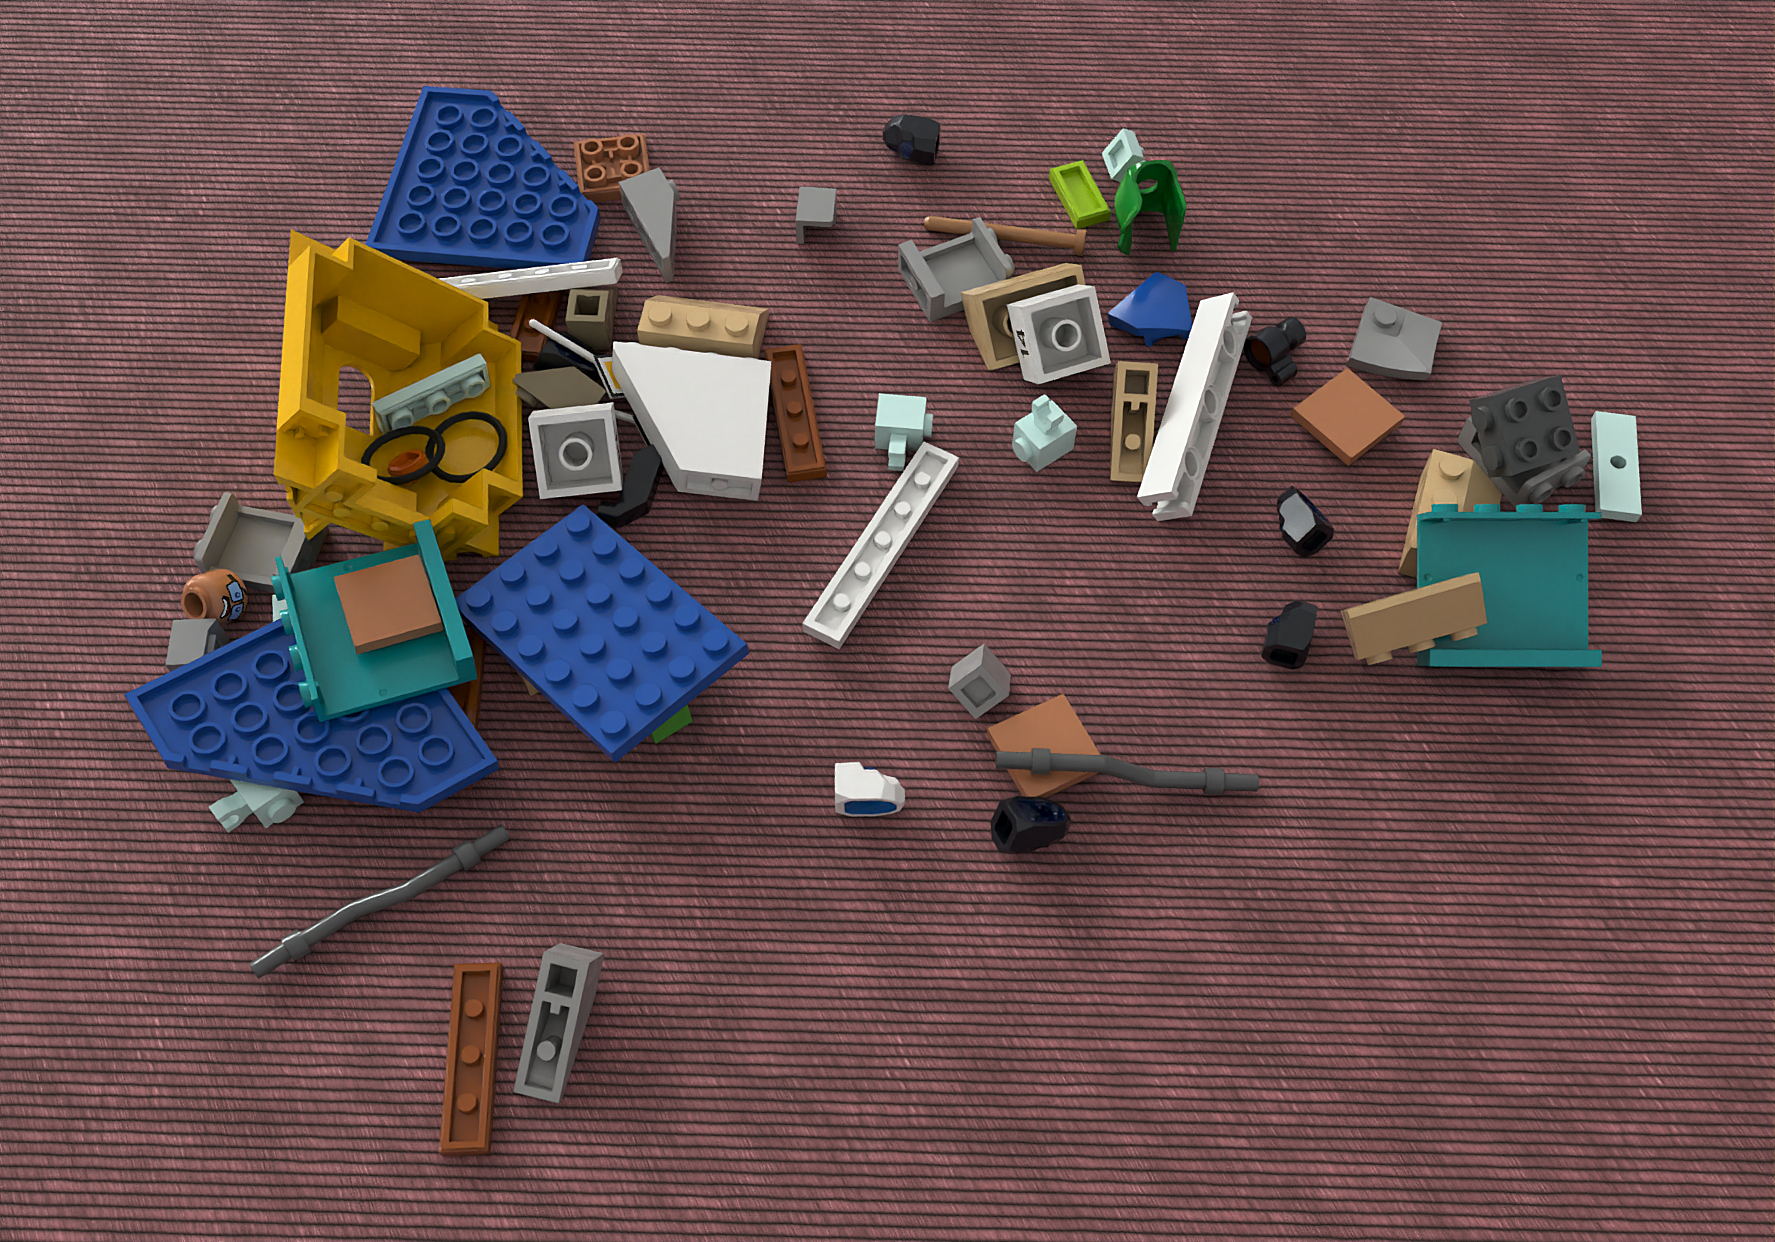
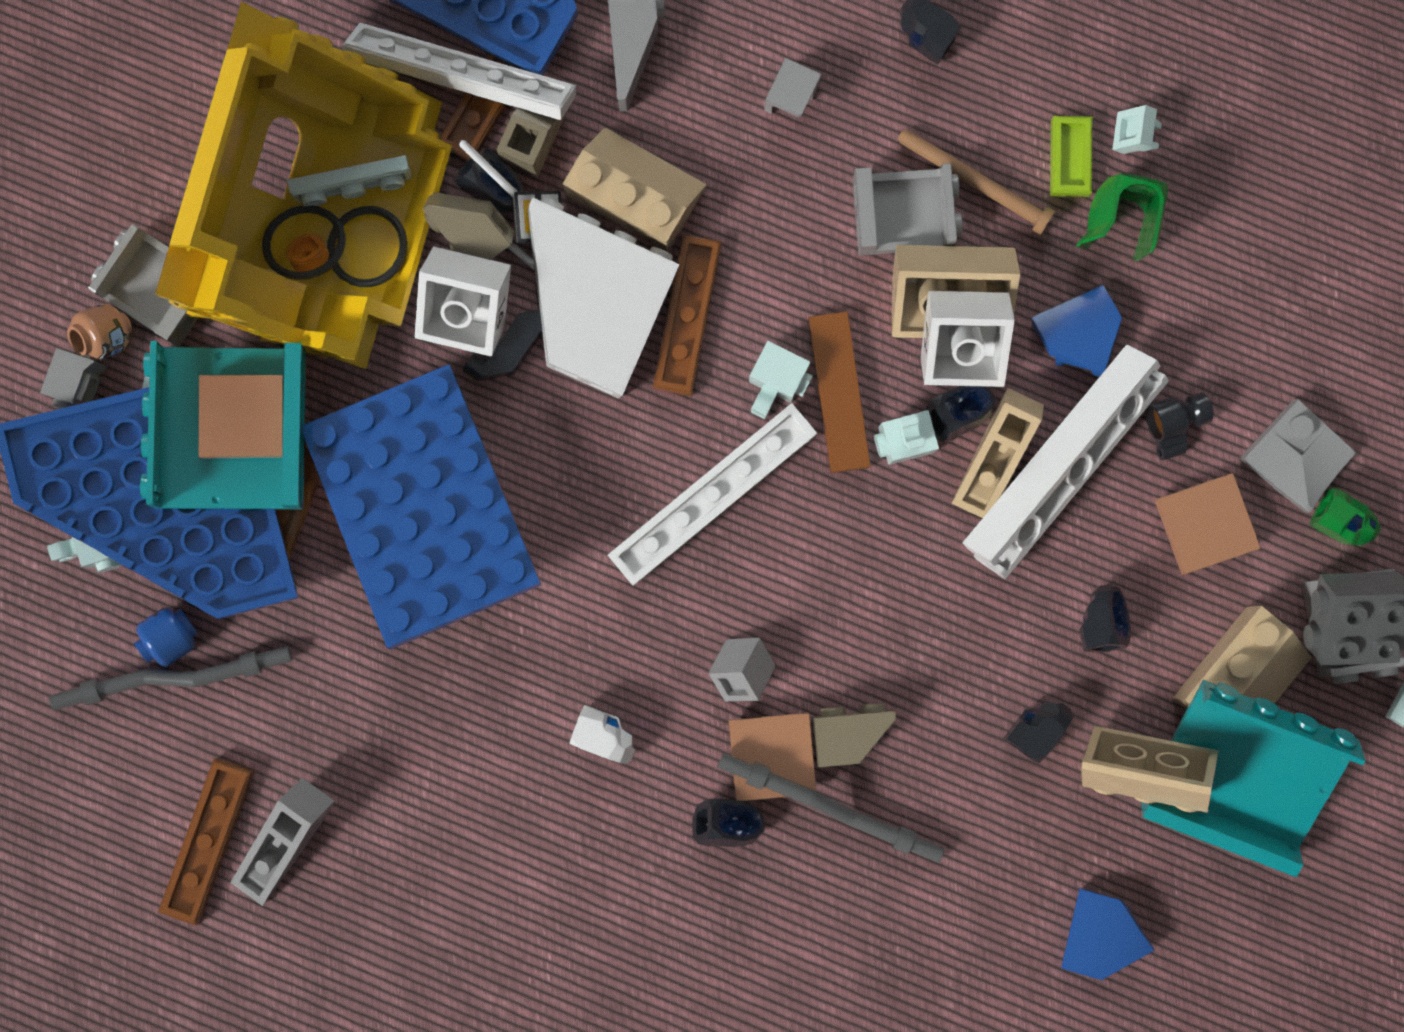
camera: 25 degrees right, 25 degrees up
(364, 856) = (165, 636): none -> blue head
(964, 427) = (839, 392): none -> dark orange tile
(1082, 396) = (960, 411): none -> rock
(1110, 700) = (849, 736): none -> dark tan slope
(1454, 797) = (1103, 936): none -> blue slope
(1464, 374) = (1345, 519): none -> green rock

